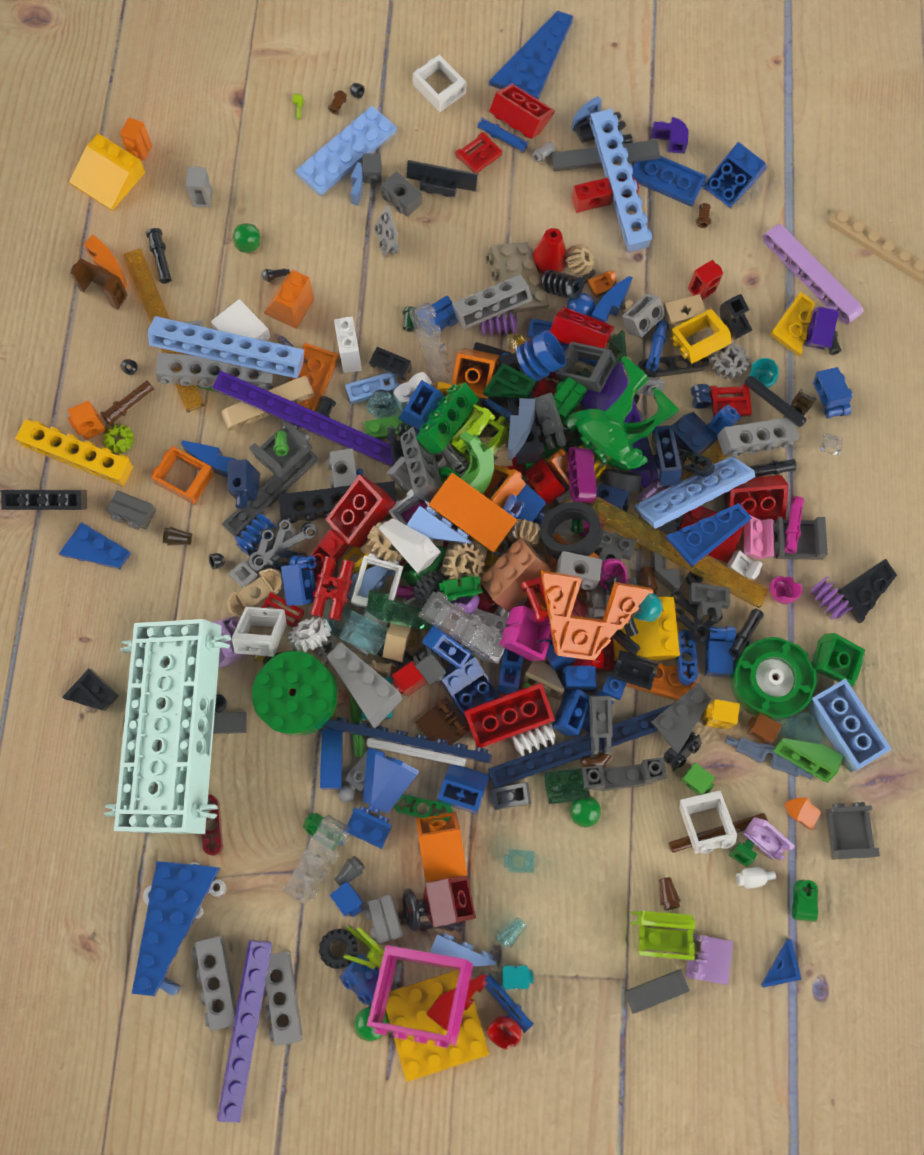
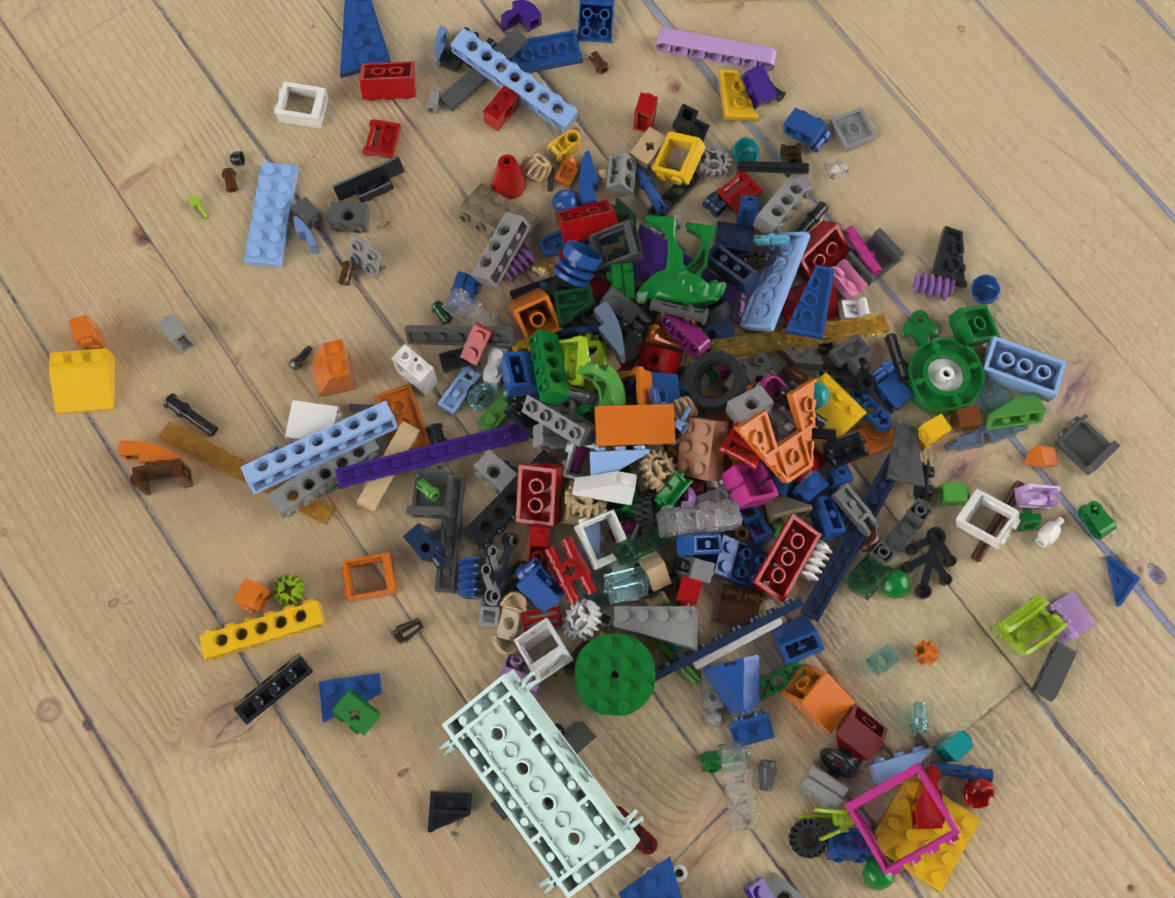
camera: 40 degrees left, 0 degrees up
(93, 572) = (350, 702): none -> green brick
(121, 410) = (268, 563): reddish brown pin -> none
(131, 510) = (352, 639): dark grey brick -> none
(133, 364) = (249, 525): black hinge -> none
(210, 455) = (379, 544): blue slope -> none
(216, 560) = (455, 623): black hinge -> none
(246, 237) = (251, 346): green hair -> none
(331, 760) = (680, 702): blue slope -> none
(347, 900) = (787, 796): blue brick -> none
(355, 550) = (570, 529): yellow bracket -> none
(363, 235) = (346, 272): none -> reddish brown pin
(405, 345) = (456, 335): none -> dark grey tile
(409, 359) = (476, 344): none -> plate
(488, 664) = (745, 532): none -> reddish brown pin
(500, 133) = (388, 110): blue pin -> none
(510, 540) = (681, 424): none -> medium blue hand
(511, 796) = (836, 616): dark grey slope -> none
(561, 886) = (926, 652): none -> orange gear
(562, 284) = (541, 196): black piece -> none
(594, 459) = (687, 312): none -> dark grey pin
(618, 259) = (563, 147): none -> yellow piece
(632, 817) = (930, 560): none -> black plant
(668, 895) = (1003, 594): reddish brown cone -> none
(720, 457) = (771, 240): none -> medium azure axle
(785, 590) = (896, 304): dark pink hair -> none
(787, 627) = (920, 331): none -> green plate
(874, 636) = (985, 289): none -> blue hair
(875, 422) = (853, 129): none -> light grey plate

